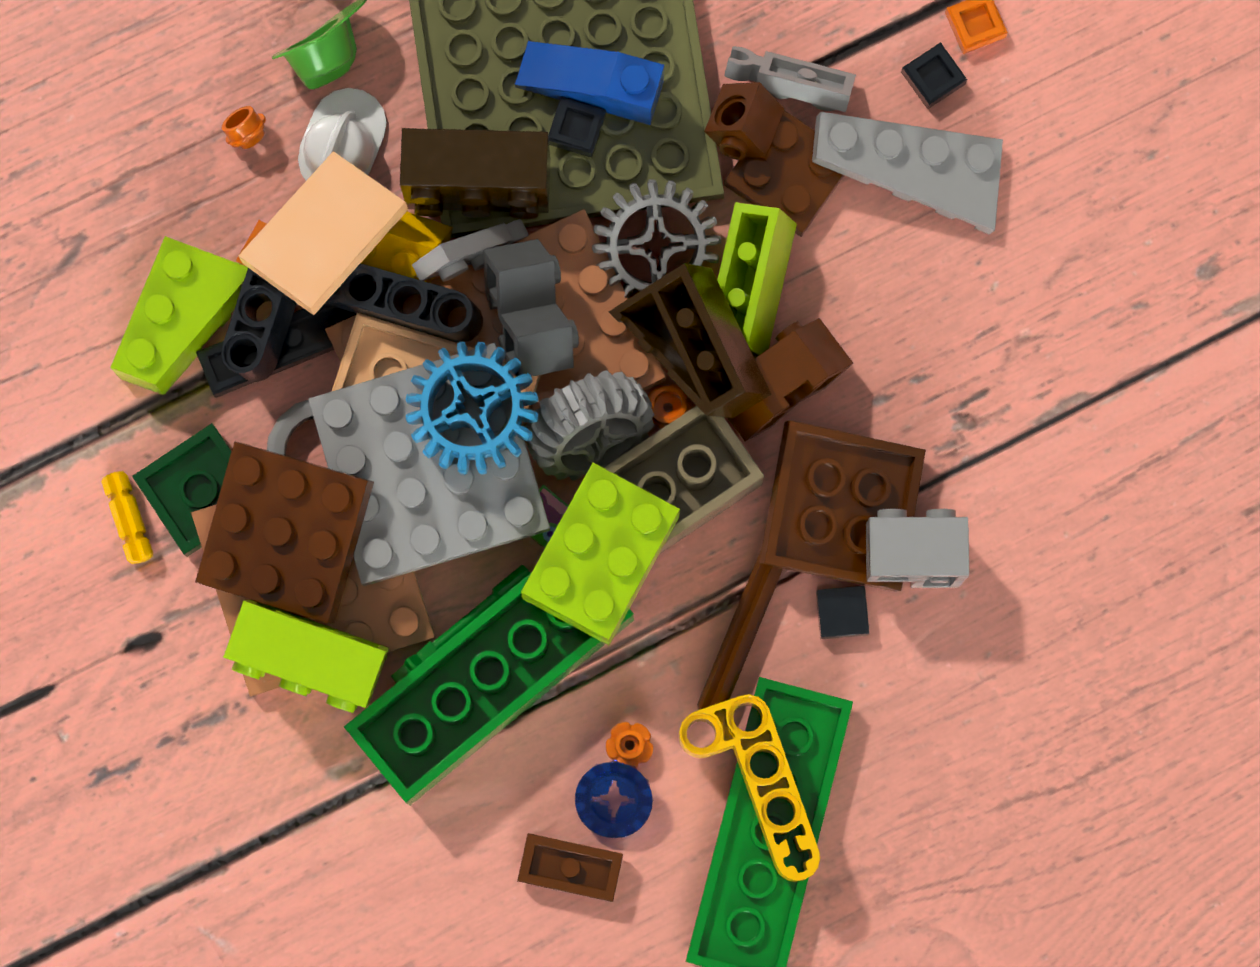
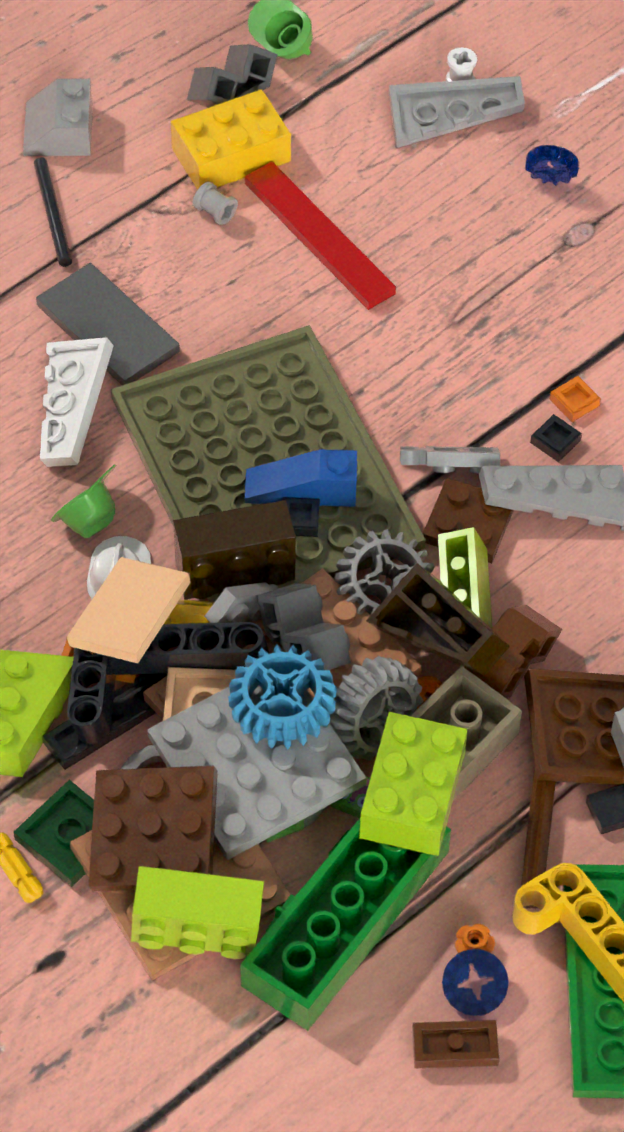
camera: 15 degrees left, 25 degrees down
(244, 127) = (41, 574): orange plate -> none
(744, 120) = (426, 486): reddish brown brick -> none

